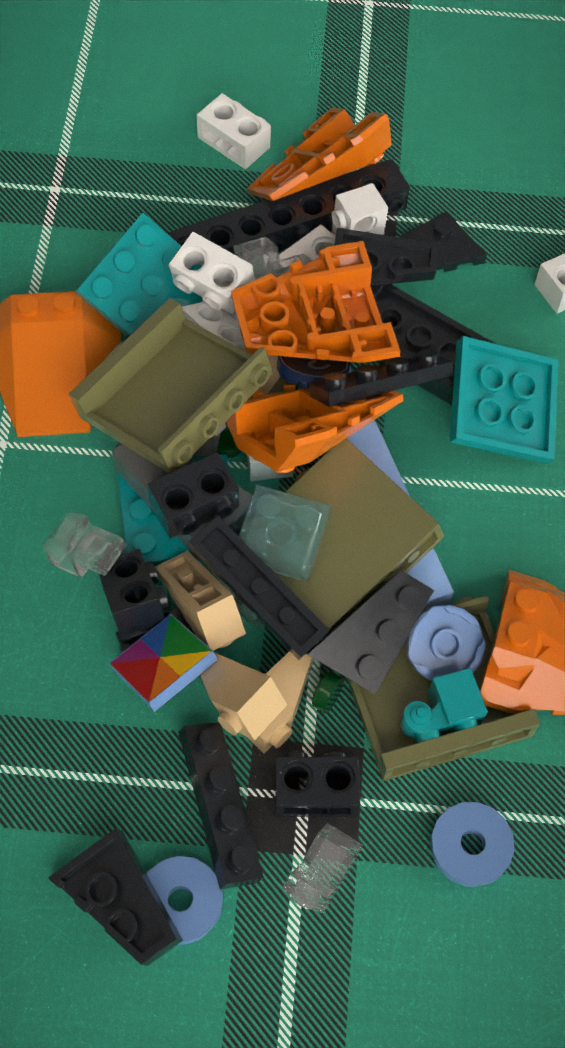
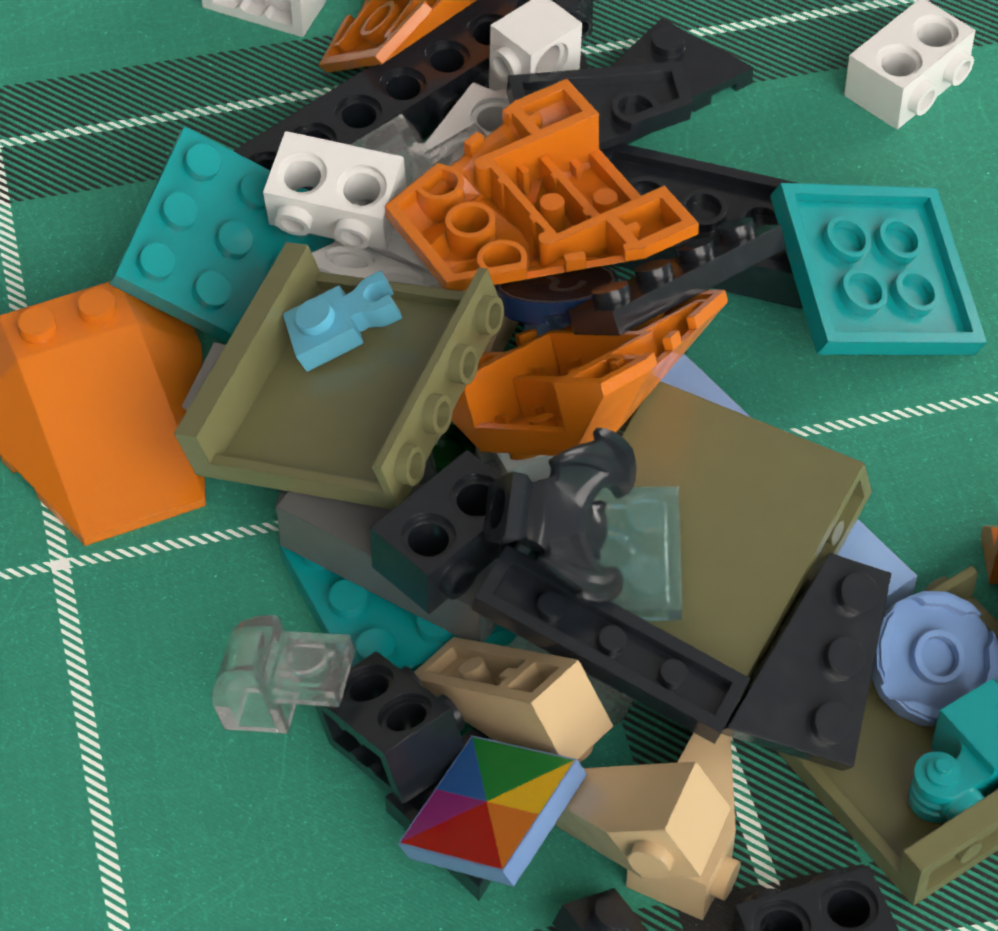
camera: 15 degrees left, 10 degrees down
(178, 351) = (333, 321): none -> medium azure plate
(253, 510) = (561, 516): none -> black animal
(327, 692) = (772, 789): dark green tile -> none

